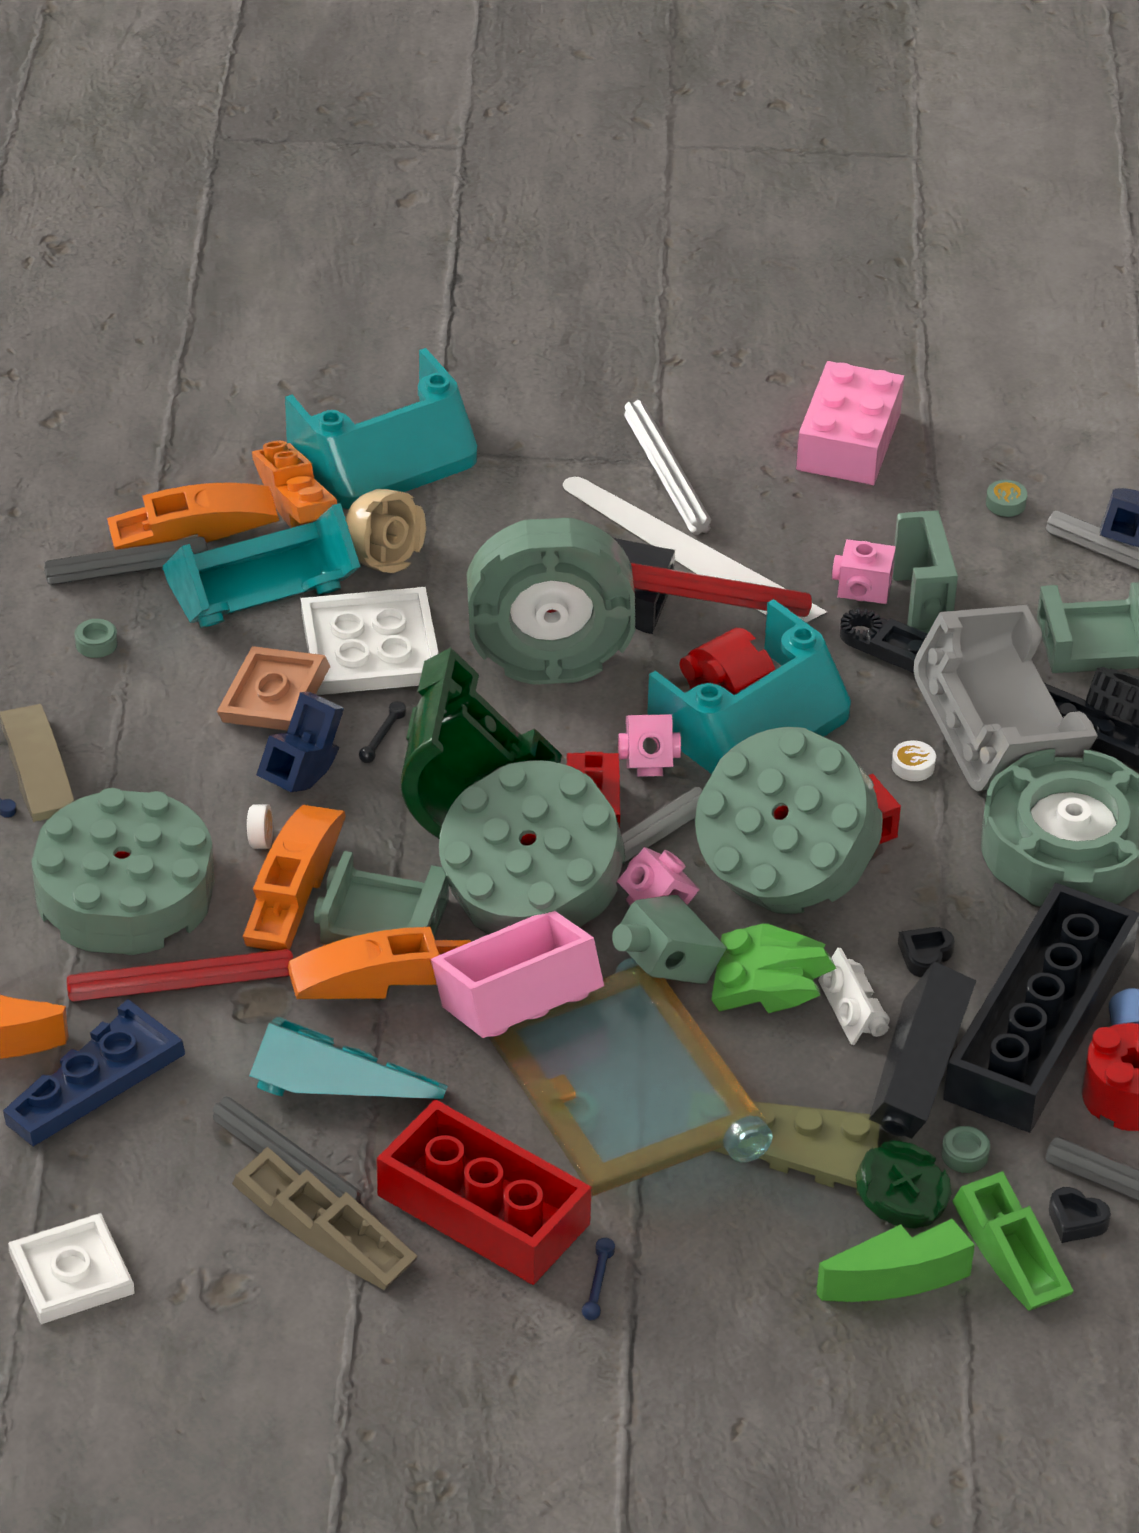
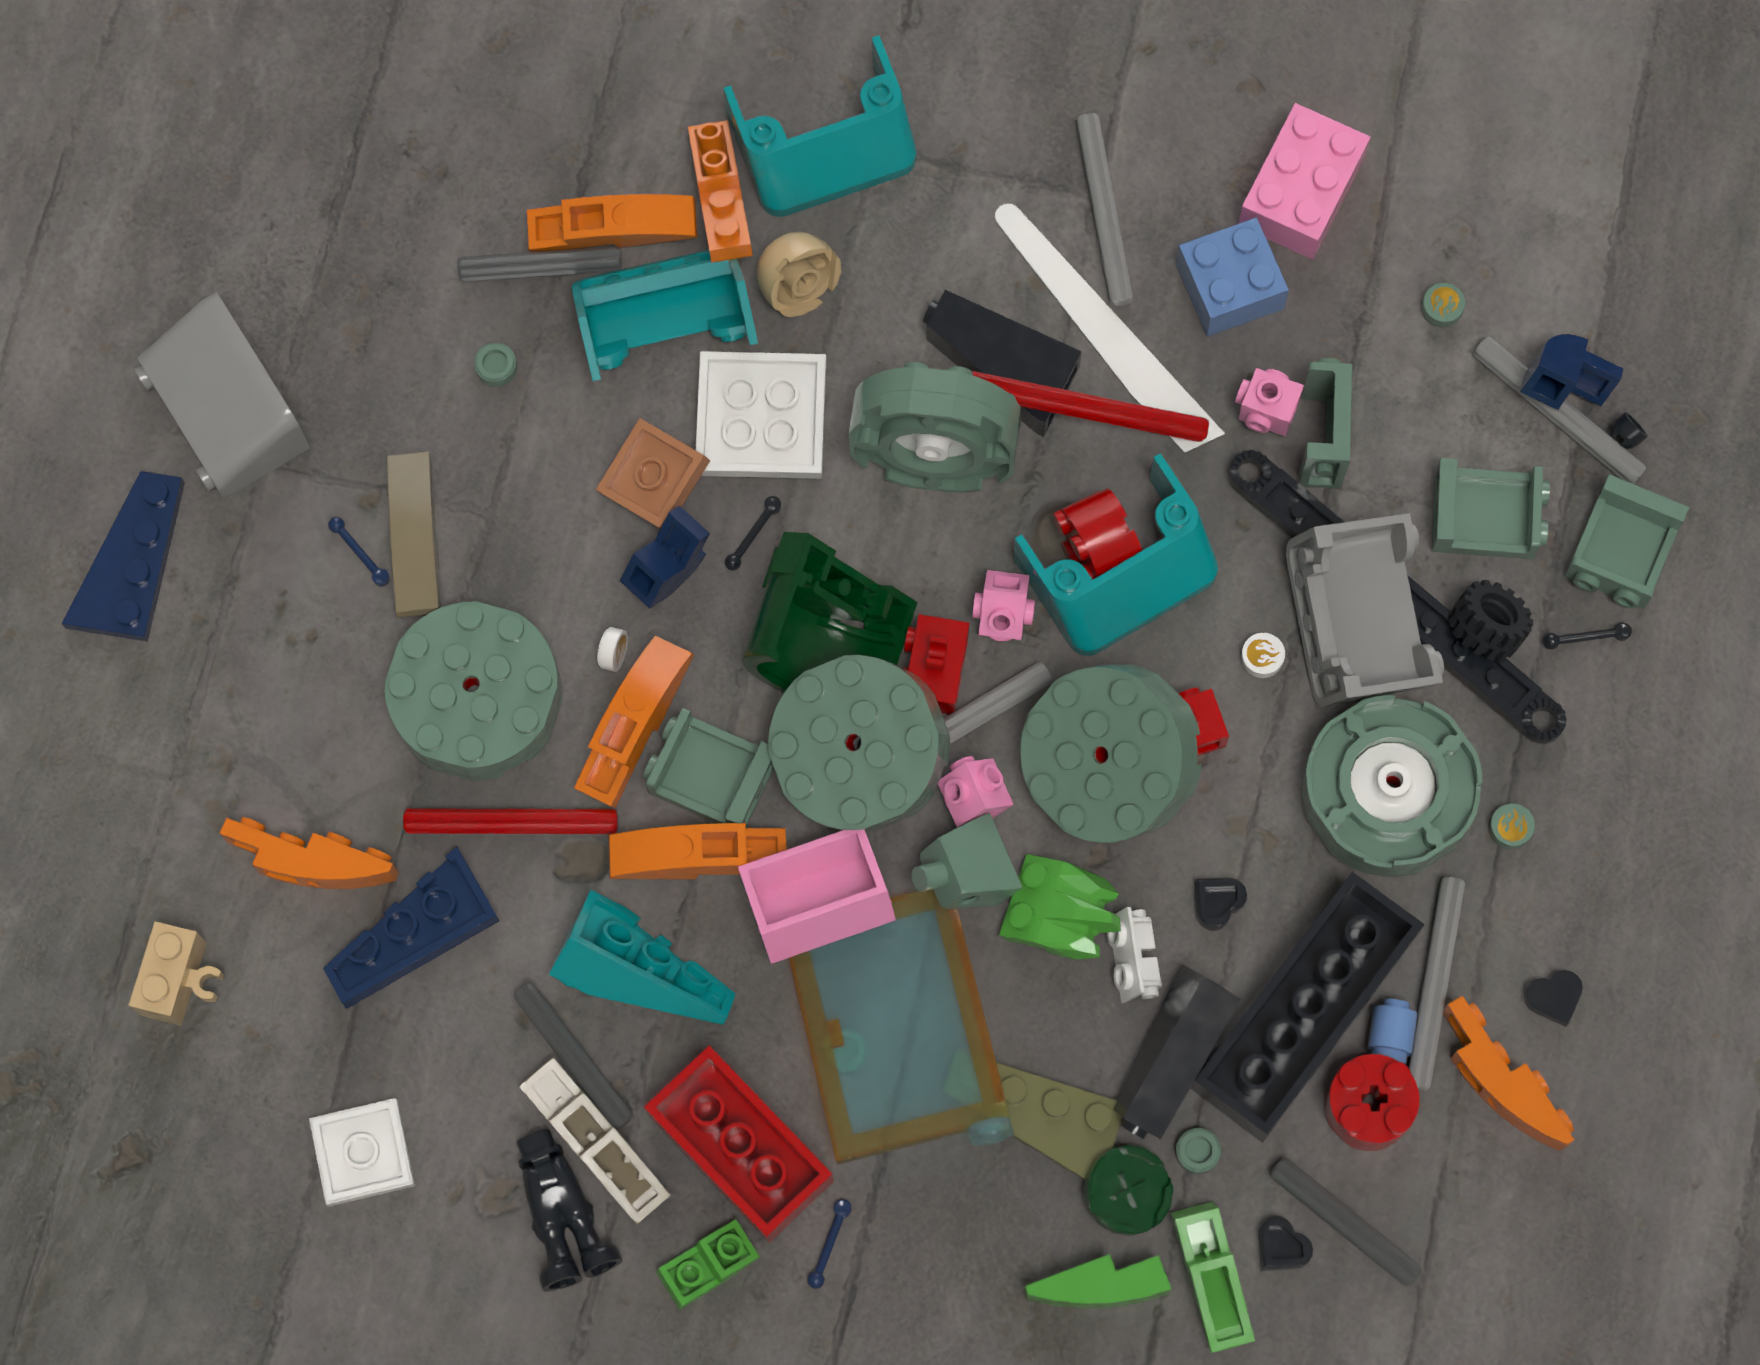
camera: 15 degrees right, 30 degrees up
(298, 1274) = (559, 1204): none -> black piece
(477, 1308) = (707, 1264): none -> bright green slope
(802, 492) = (1232, 277): none -> medium blue brick

